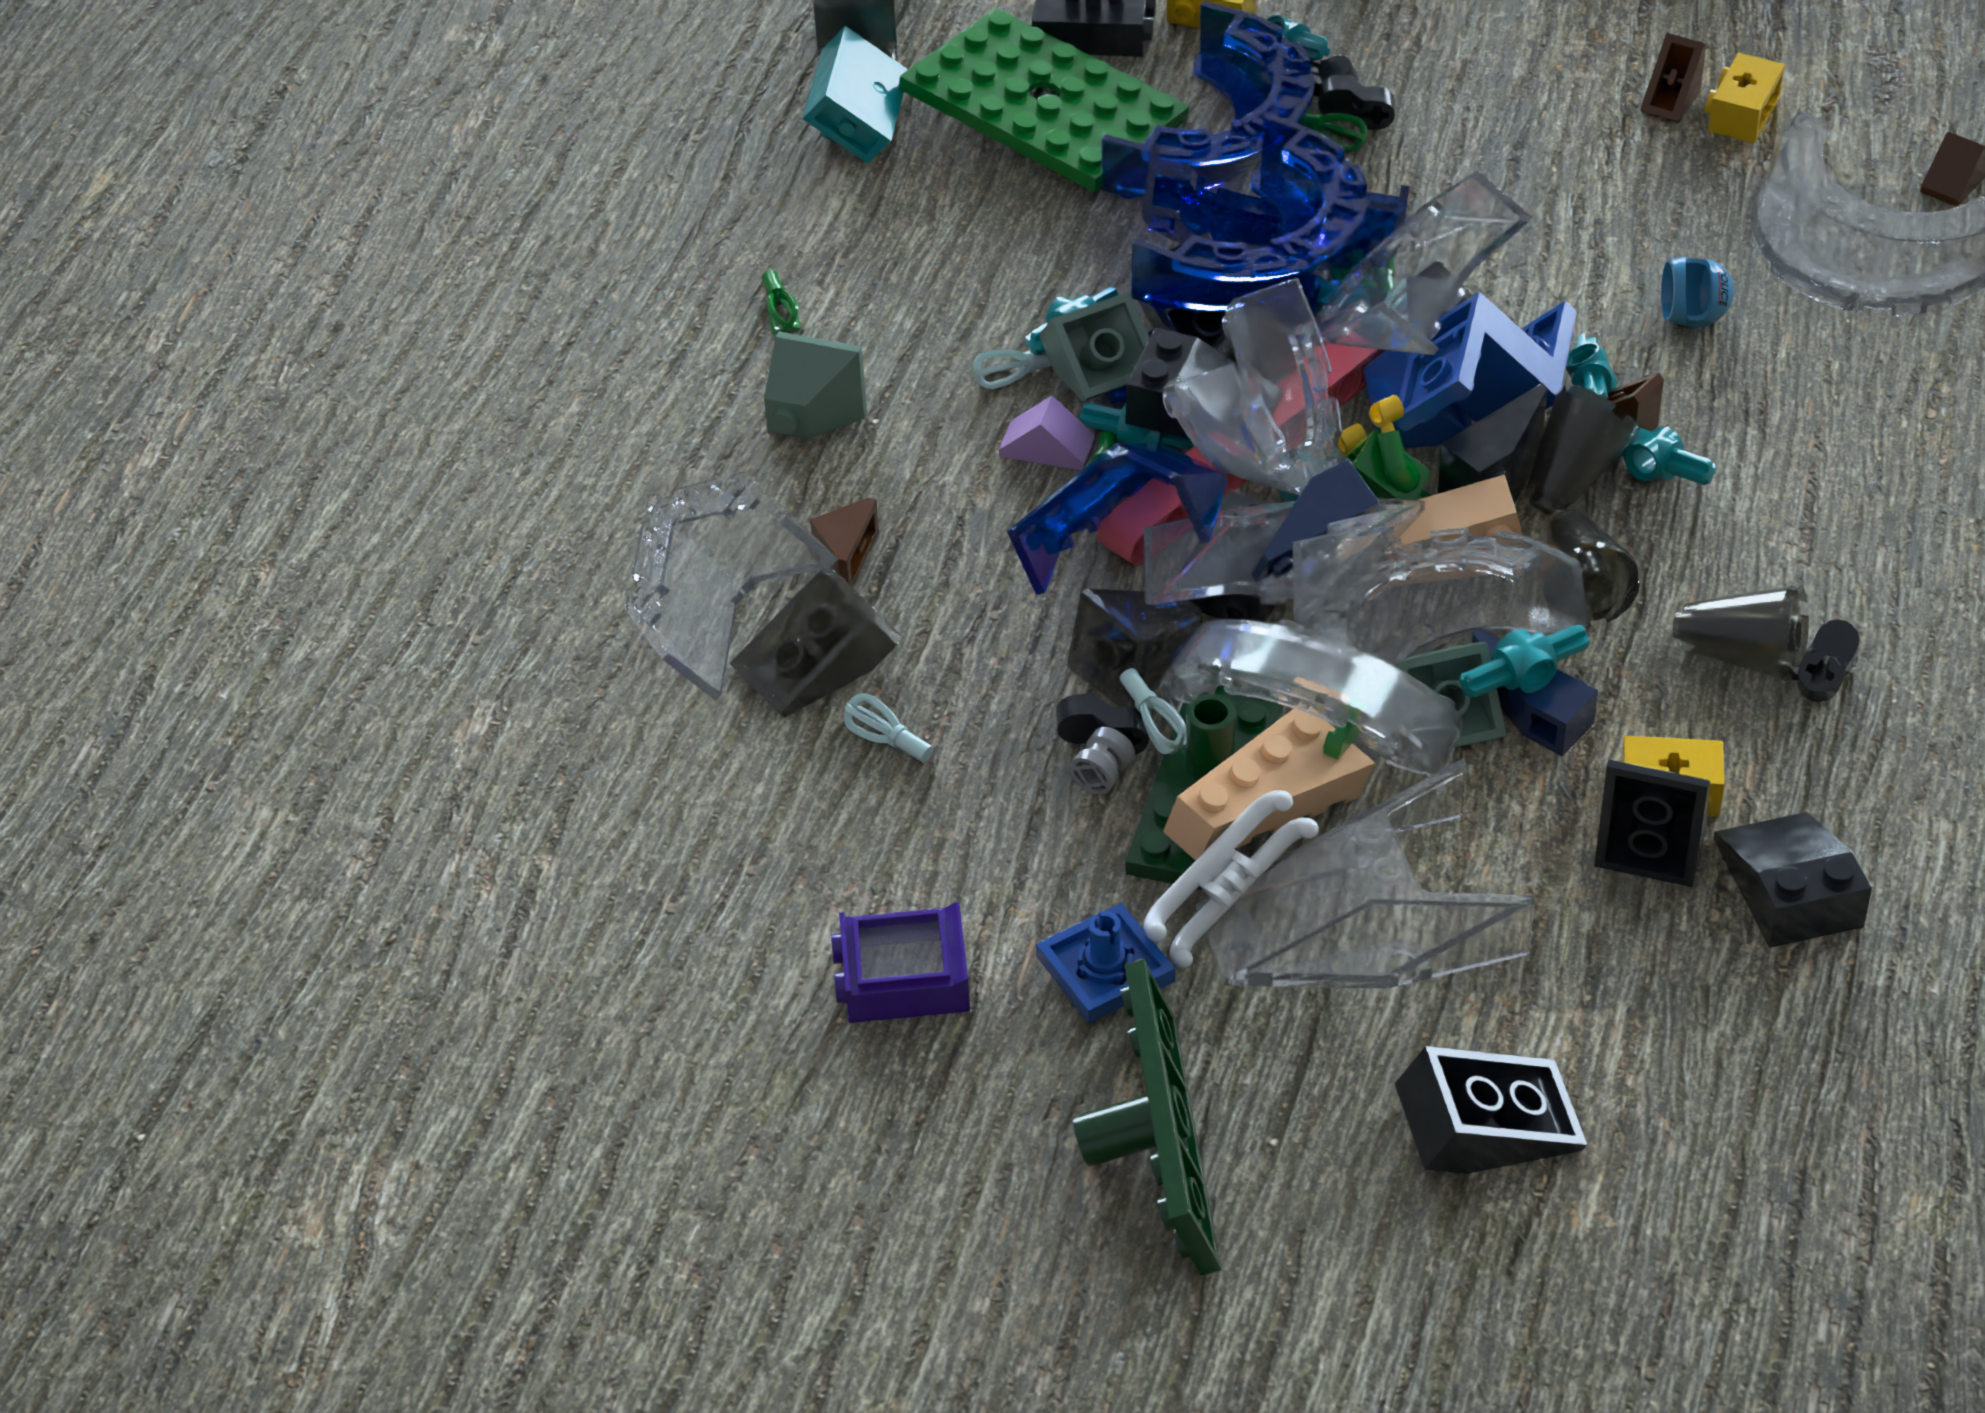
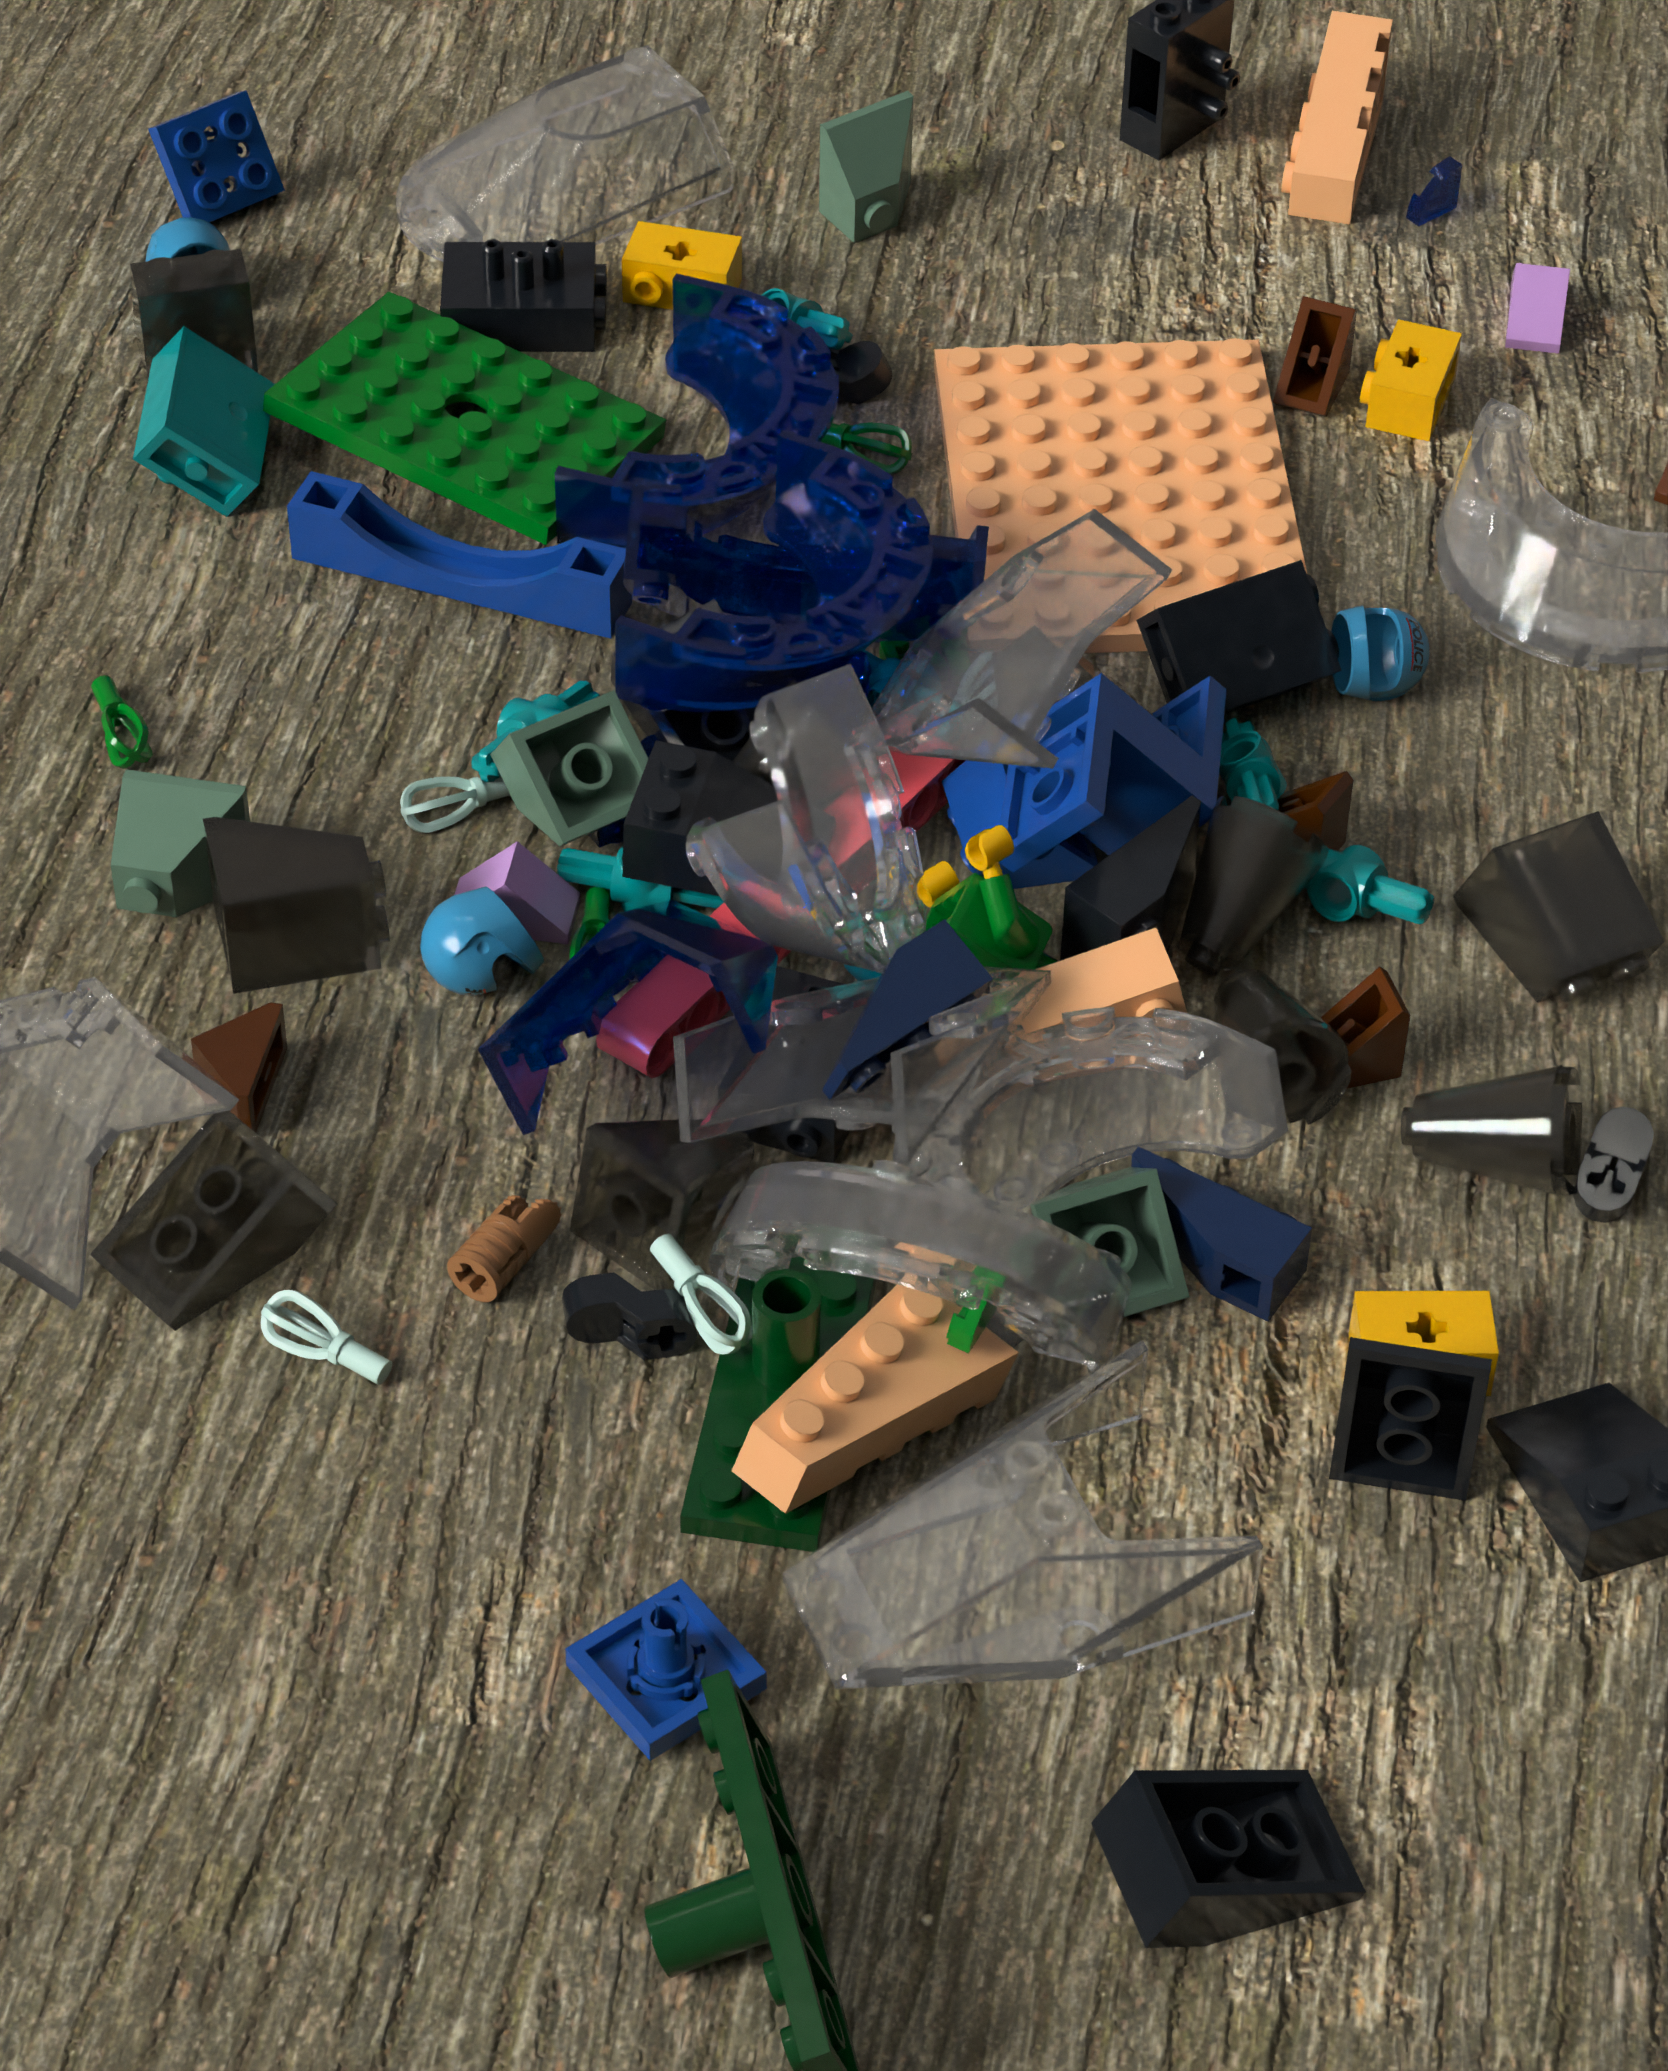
camera: 10 degrees left, 0 degrees up
(890, 430) = (293, 903): none -> clear smoke slope
(901, 964) = (376, 1691): dark purple window -> none
(958, 177) = (357, 533): none -> blue arch
(1010, 459) = (468, 936): none -> dark azure helmet
(1017, 673) = (502, 1246): none -> medium nougat hinge
(1102, 760) = (637, 1363): light grey wheel -> none
(1224, 873) = (825, 1530): white piece -> none
(1349, 96) = (883, 398): black piece -> none
(1524, 661) = (1209, 1193): teal axle -> none
(1553, 143) = (1149, 434): none -> light nougat plate
(1599, 275) = (1247, 635): none -> black piece
(1659, 557) = (1373, 1028): none -> reddish brown slope
(1810, 479) = (1561, 910): none -> clear smoke slope
(1846, 48) = (1537, 307): none -> lavender slope

